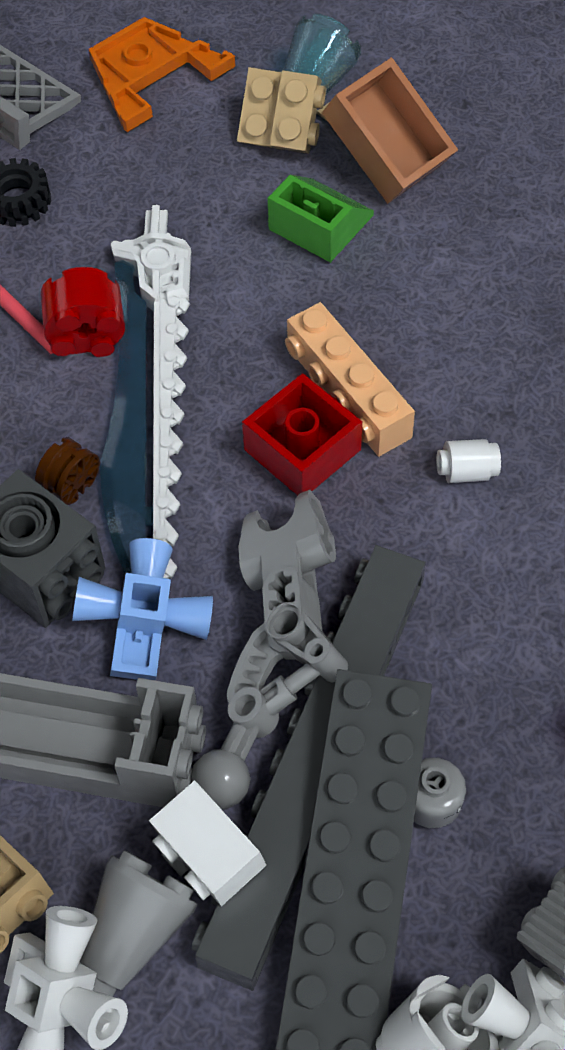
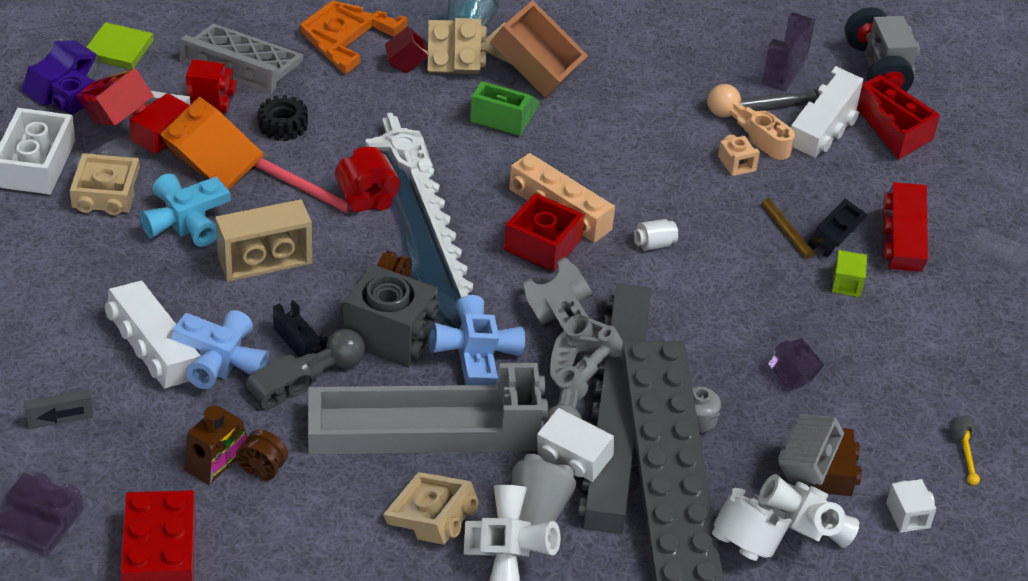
camera: 20 degrees left, 15 degrees down
(213, 107) = (406, 50): none -> dark red brick

